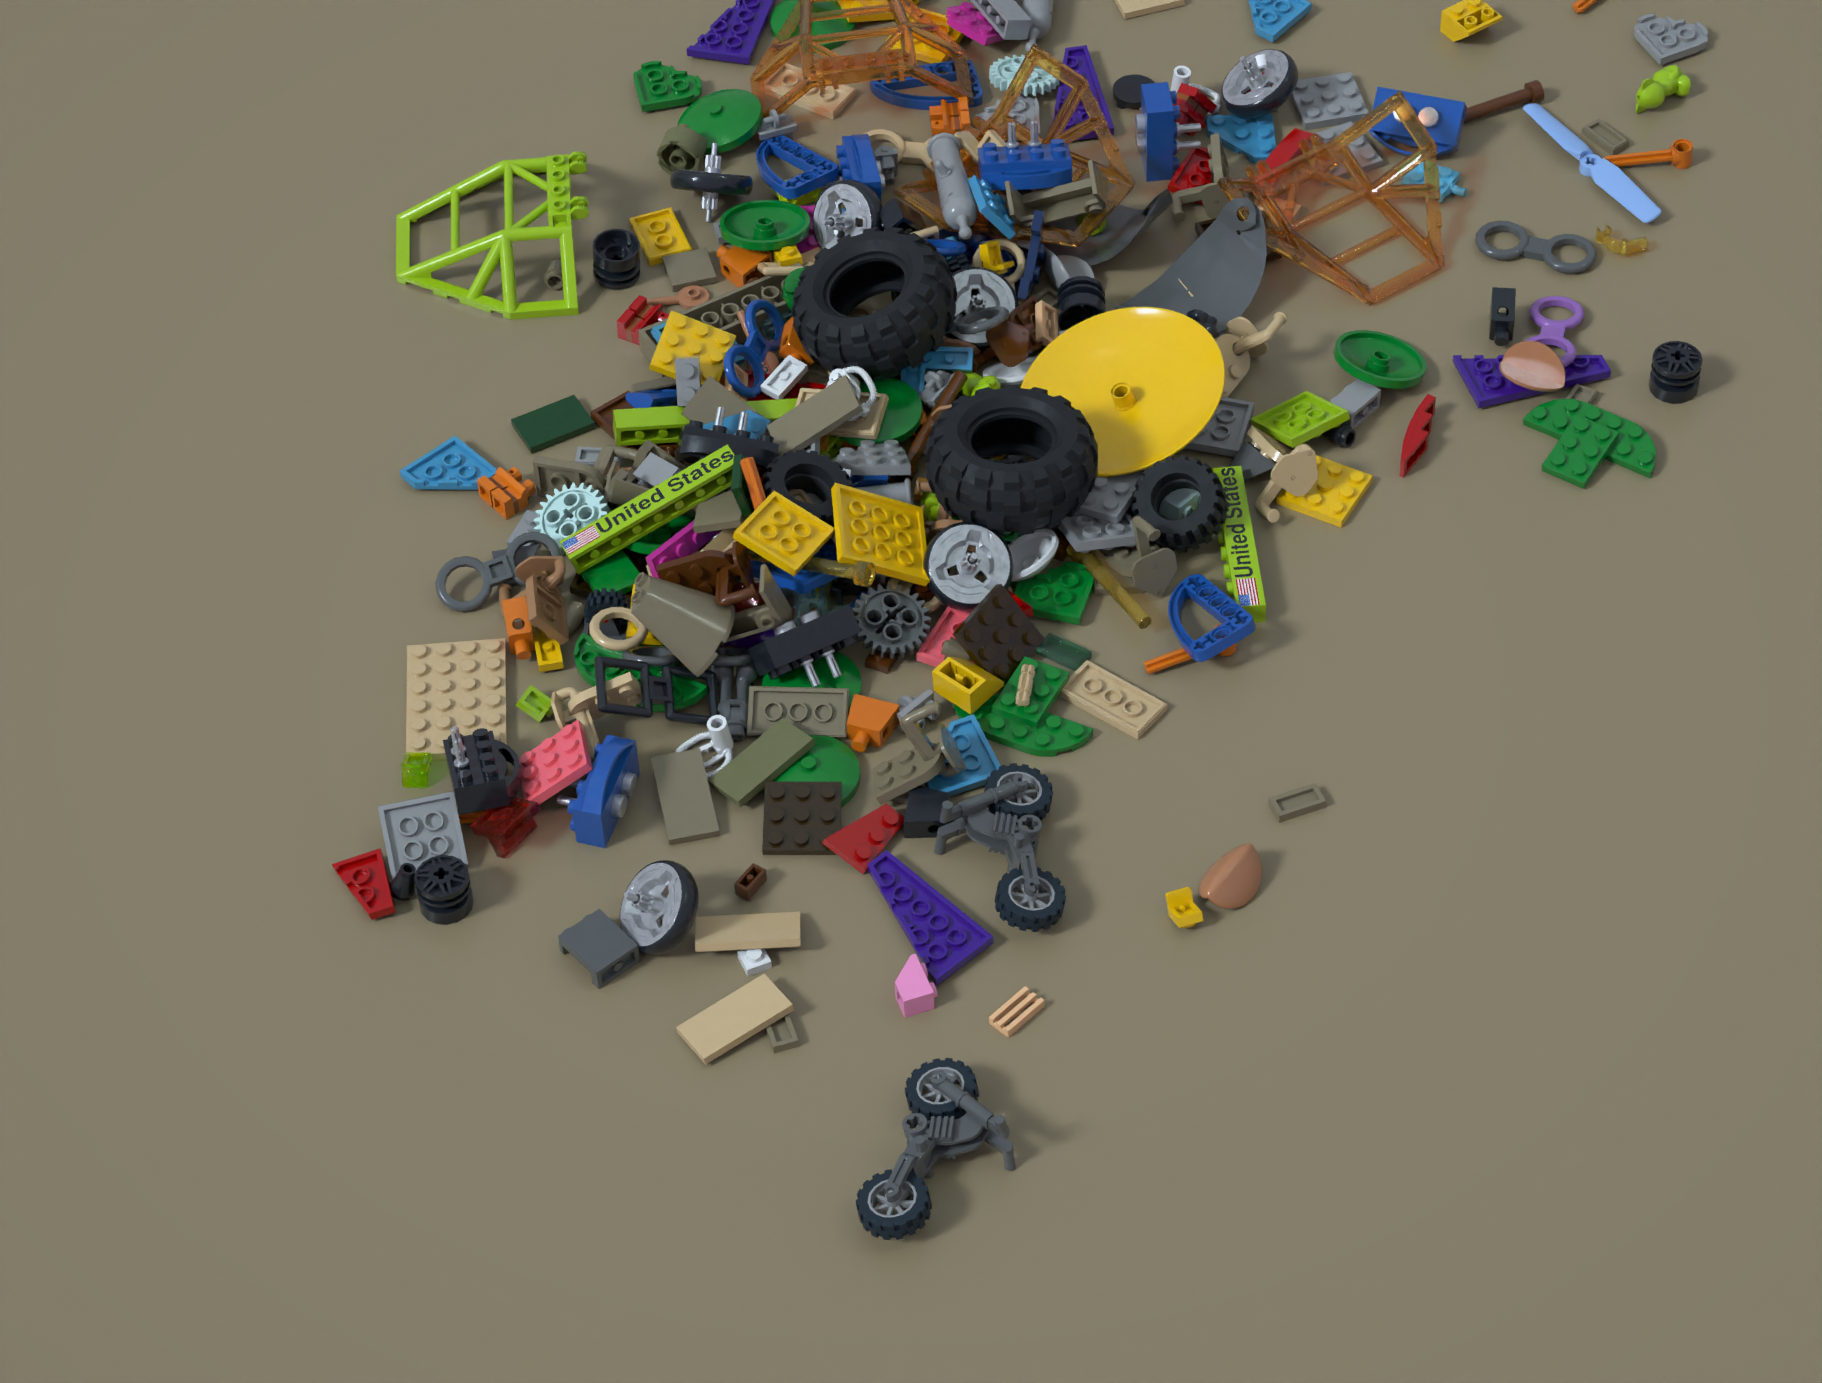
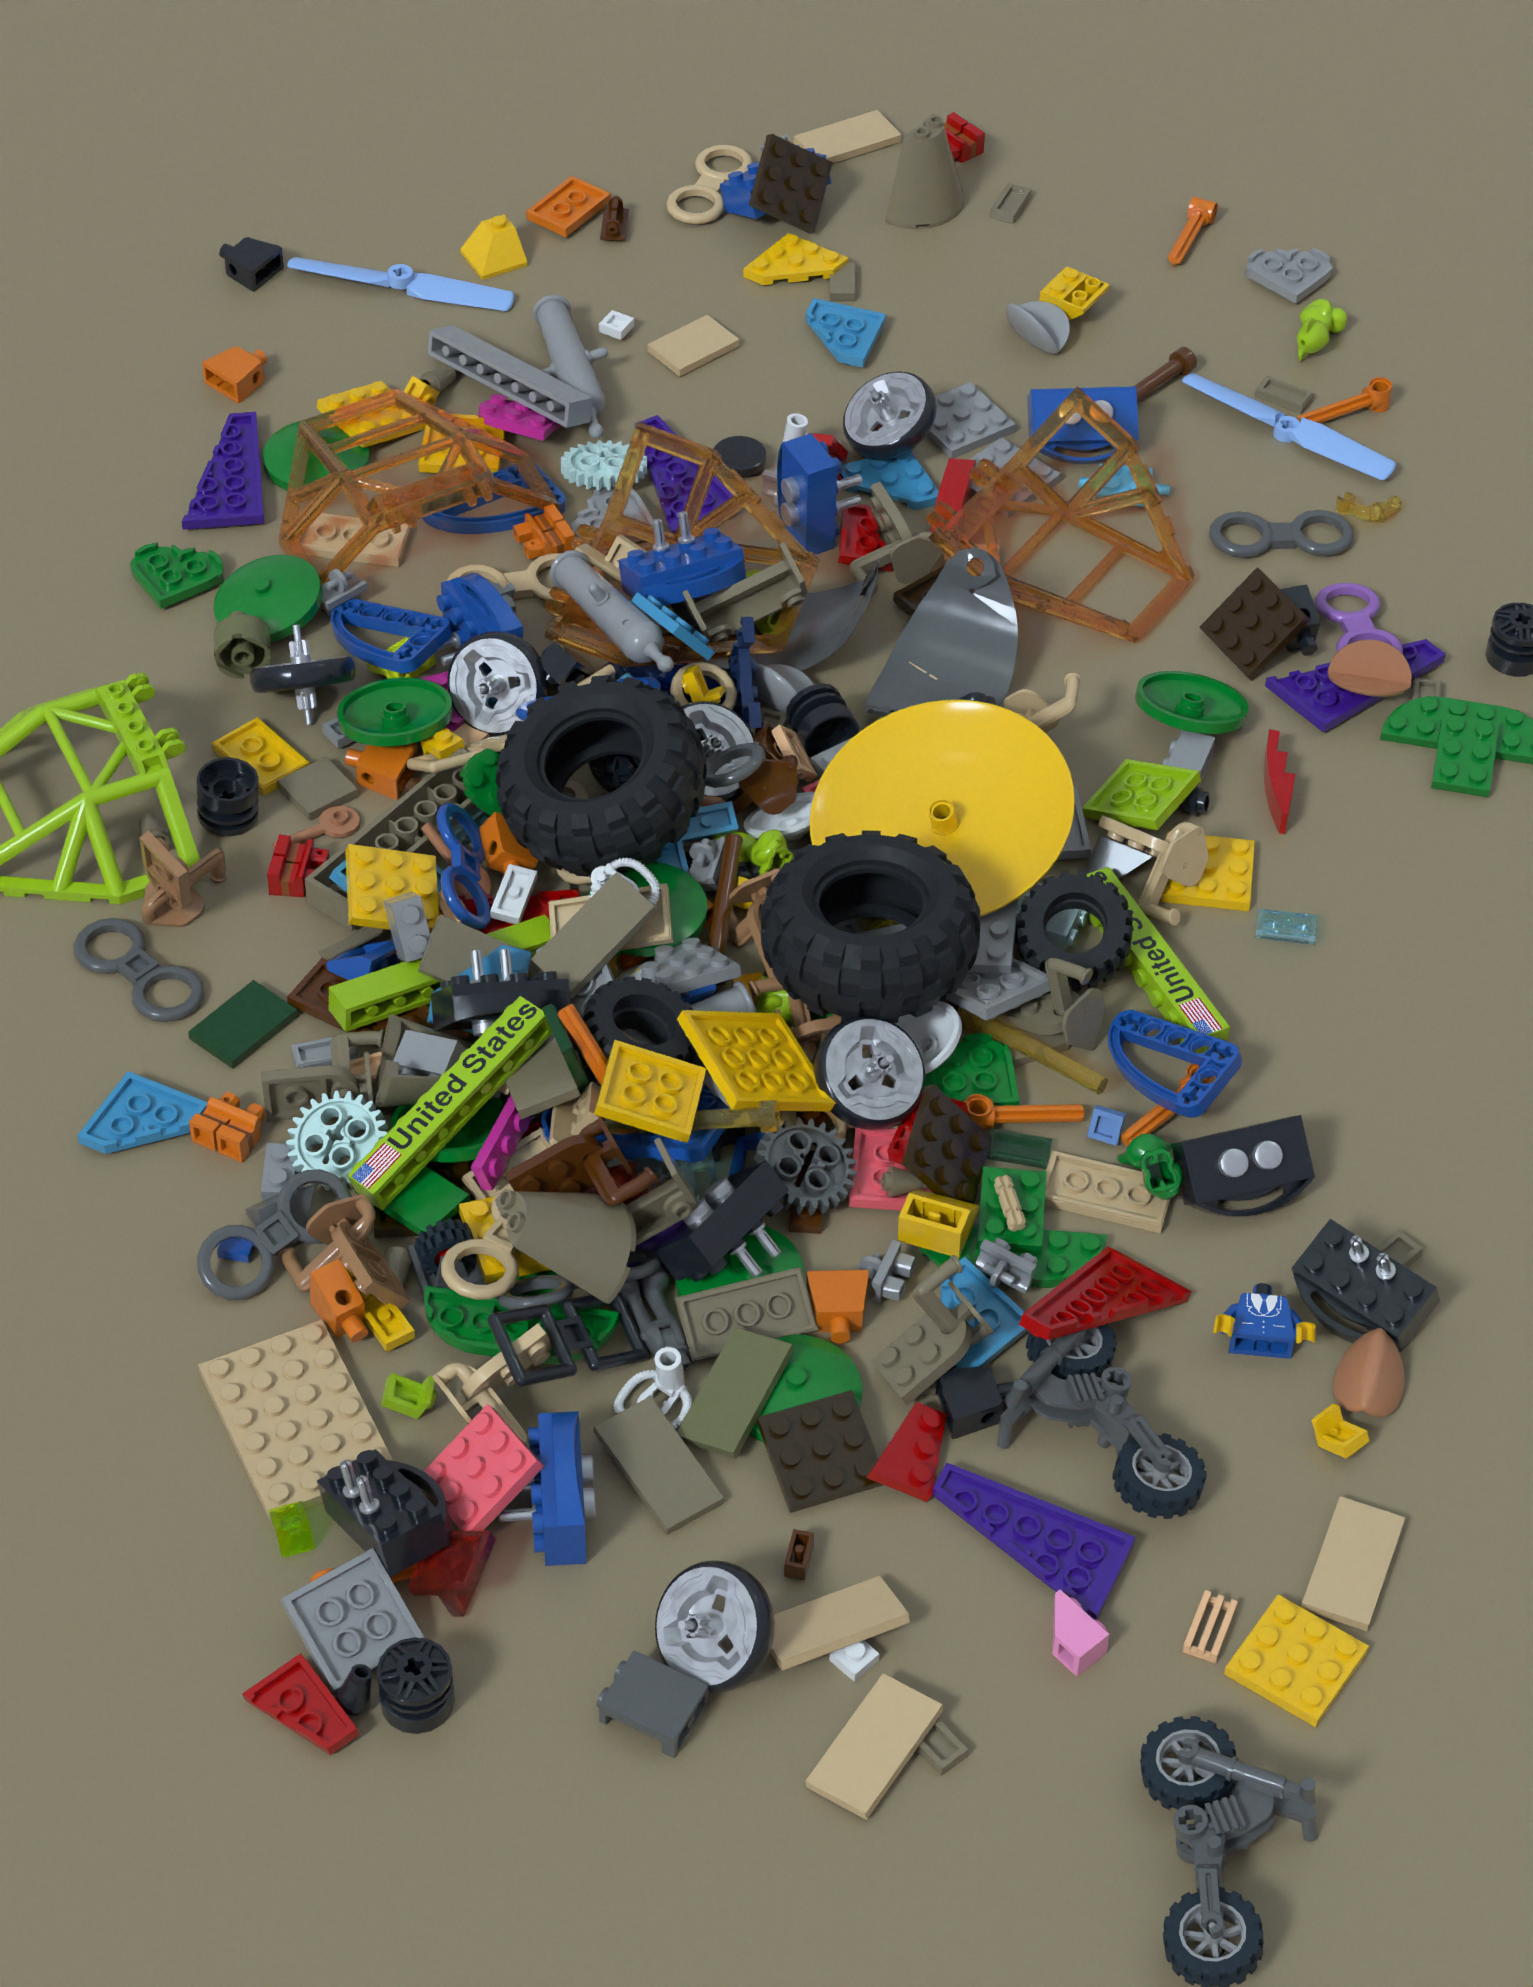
camera: 25 degrees left, 0 degrees up
(470, 576) = (236, 1250): none -> blue tile
(499, 368) = (139, 969): none -> dark grey bar
(545, 320) = (170, 894): none -> medium nougat plate
(996, 727) = (1006, 1266): none -> light grey hips
(1047, 621) = (986, 1114): none -> orange axle
(1061, 764) = (1101, 1293): none -> red wing
(1066, 1051) = (1296, 1660): none -> yellow plate
(1136, 652) = (1106, 1125): none -> medium blue tile
(1145, 1000) = (1353, 1563): none -> tan tile
(1150, 687) = (1160, 1172): none -> green animal
(1168, 819) = (1263, 1325): none -> blue torso
(1216, 705) = (1245, 1166): none -> black piece
(1257, 813) = (1362, 1286): none -> black piece
(1359, 544) = (1286, 926): none -> clear light blue plate
(1433, 37) = (1040, 324): none -> light grey piece
(1463, 310) = (1254, 623): none -> dark brown plate

